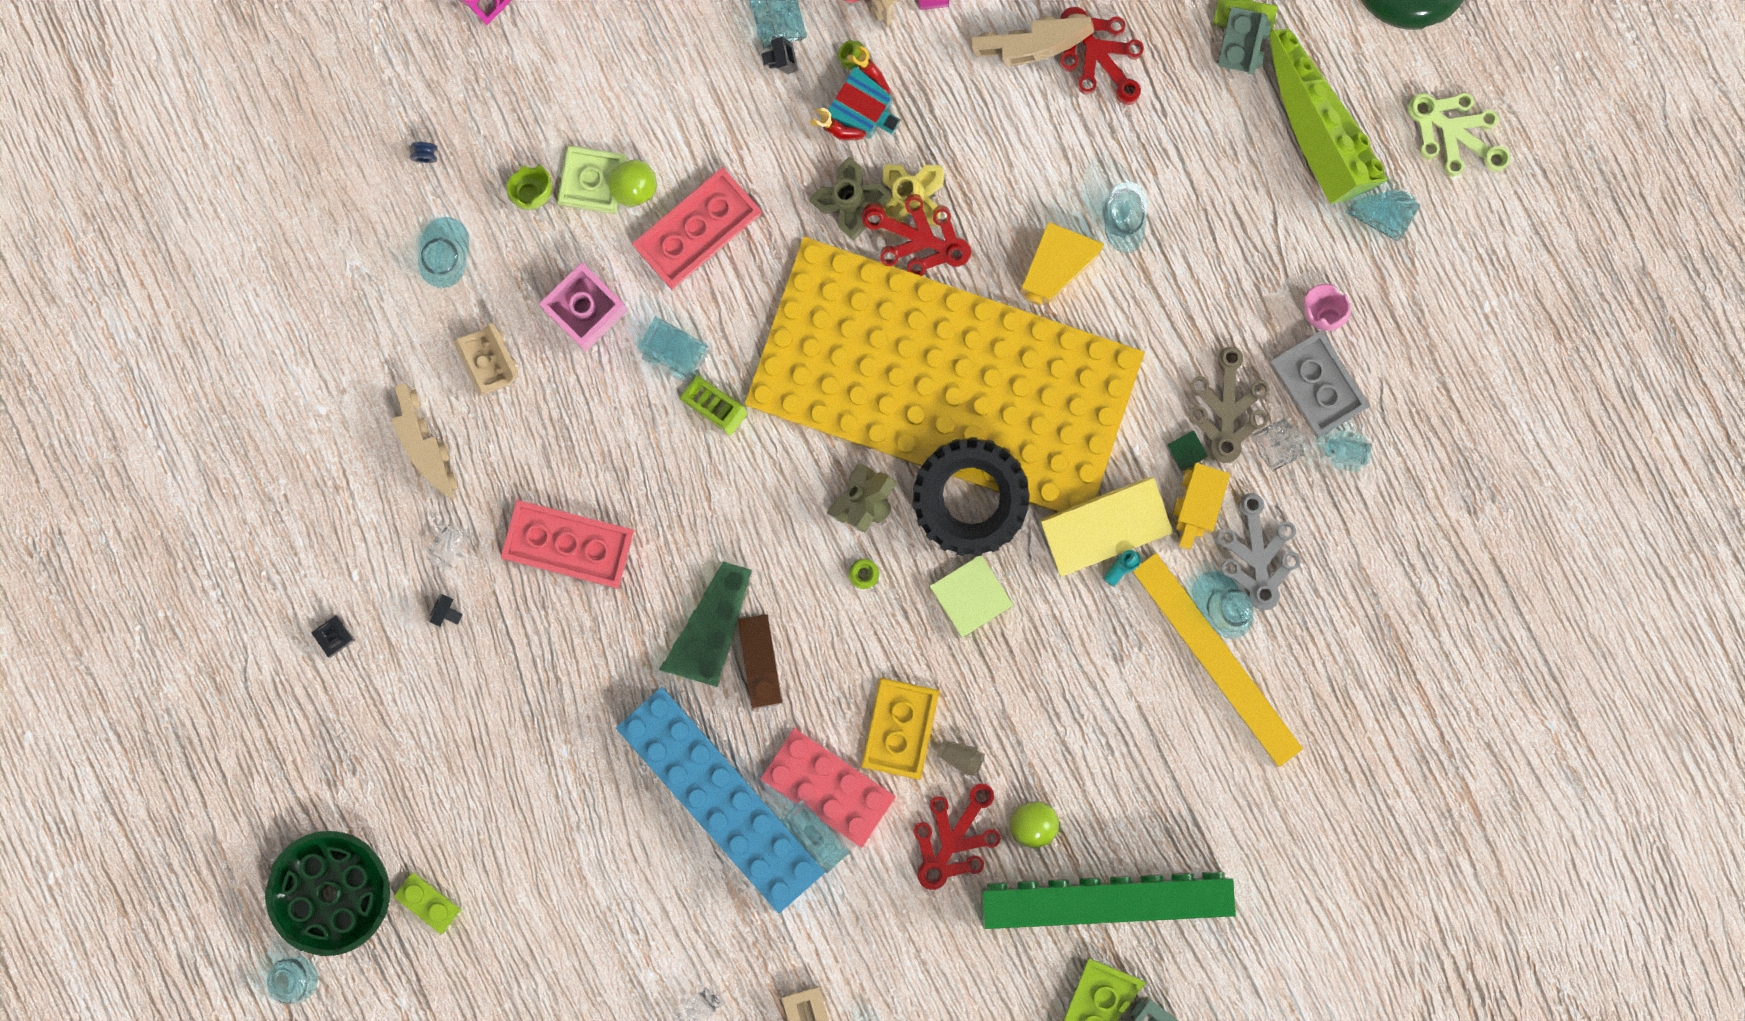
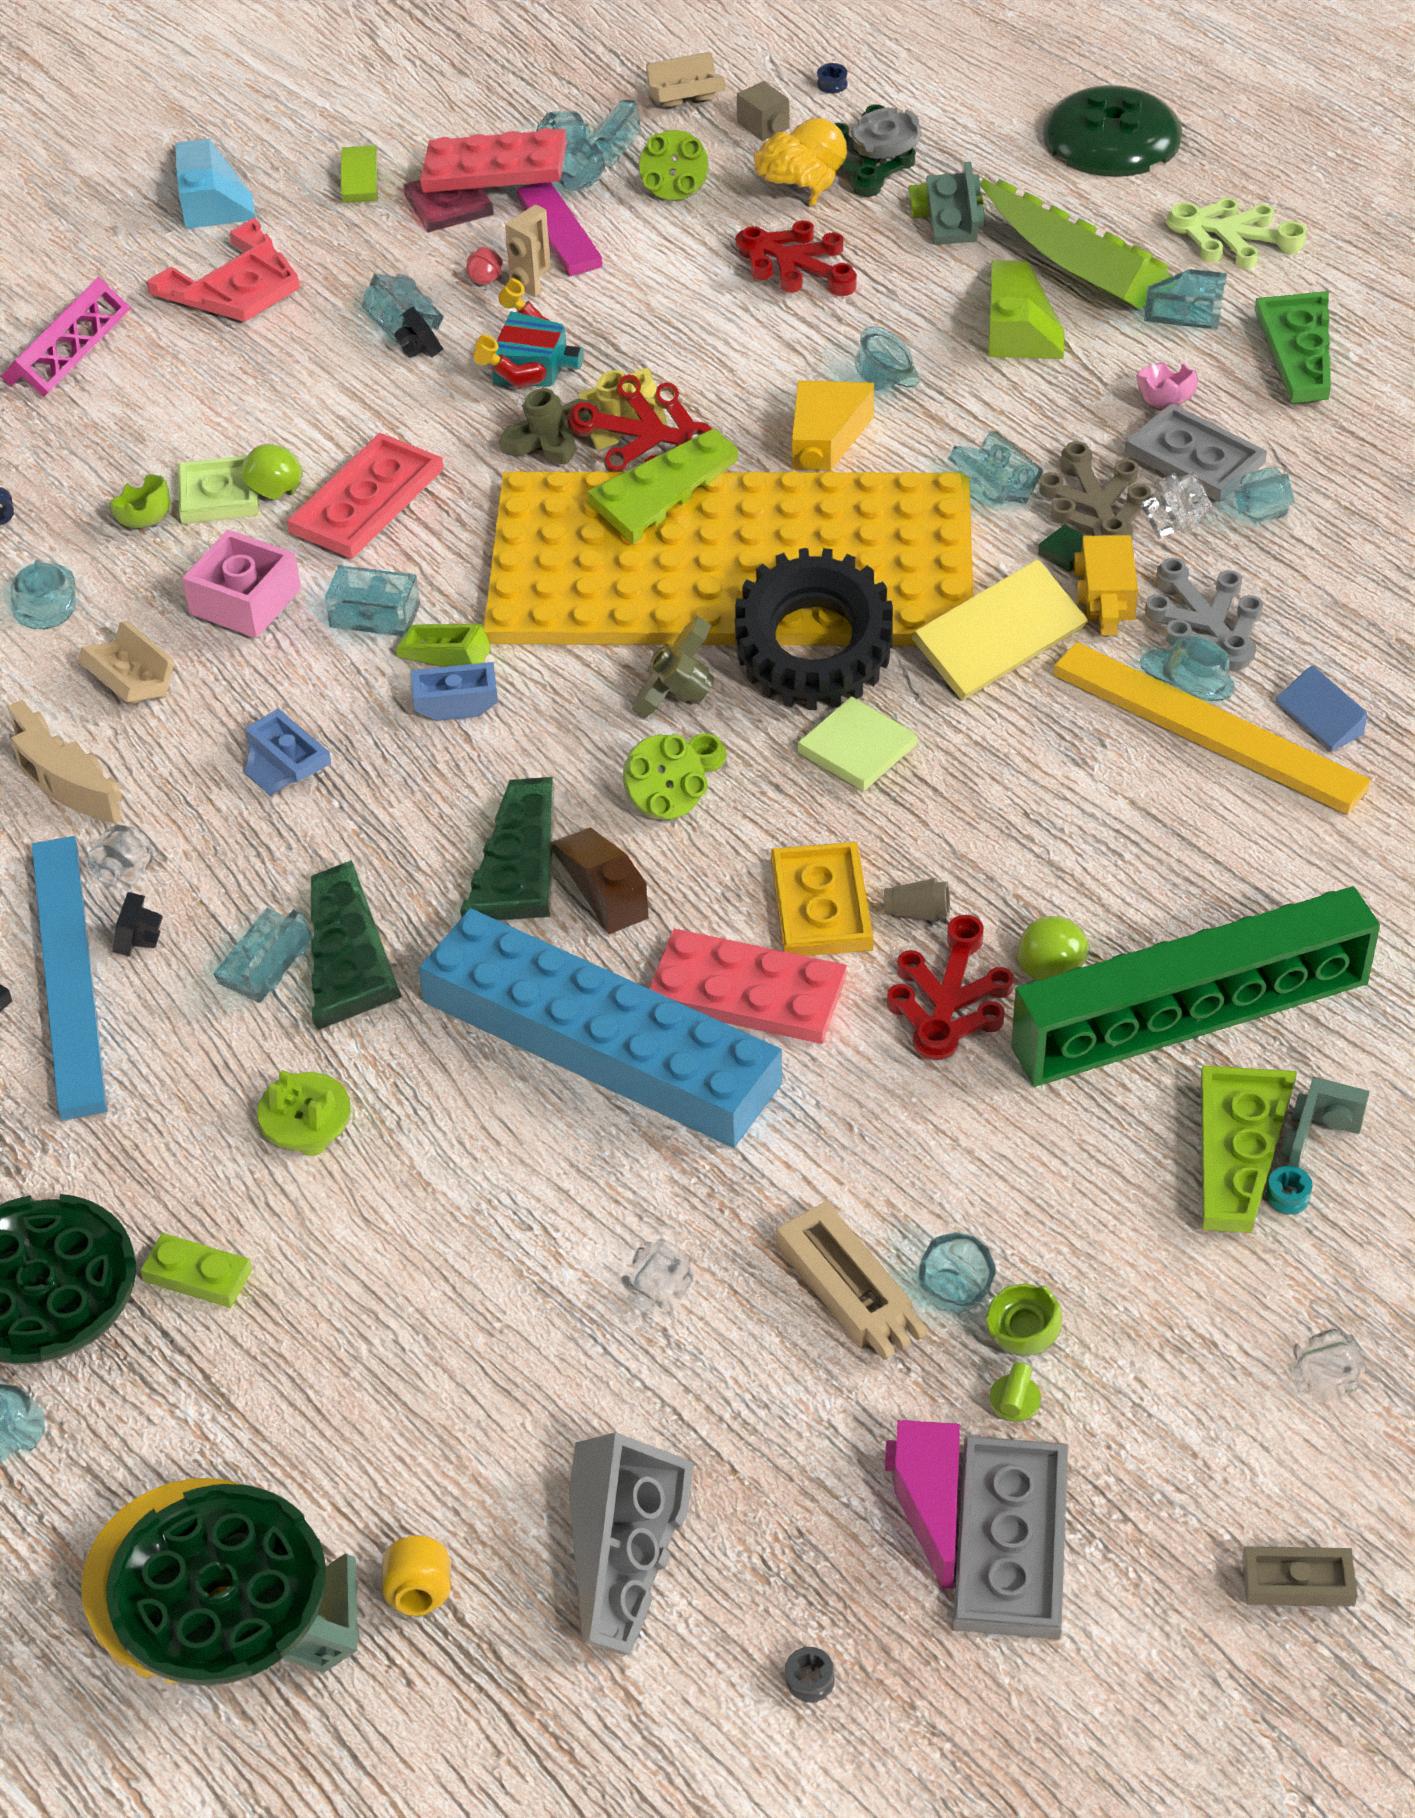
camera: 15 degrees left, 35 degrees down
(394, 633) = (69, 979): none -> dark azure tile
(510, 791) = (319, 1121): none -> lime plate
(522, 667) = (264, 954): none -> clear light blue bracket
(567, 544) = (290, 818): coral plate -> none
(576, 481) = (281, 752): none -> medium blue slope
(578, 679) = (347, 950): none -> clear green wing
(709, 454) = (454, 691): none -> medium blue slope
(814, 836) = (754, 1013): clear light blue slope -> none
(838, 592) = (679, 766): none -> lime plate
(849, 48) = (497, 317): lime plate -> none
(903, 304) = (654, 487): none -> lime wing
(1047, 39) = (717, 254): tan slope -> none
(1124, 564) = (1041, 663): teal arm -> none
(1164, 359) = (998, 469): none -> clear light blue bracket
(1252, 180) = (1021, 315): none -> lime wedge
(1299, 672) = (1323, 709): none -> medium blue slope
(1449, 284) = (1299, 342): none -> bright green wing

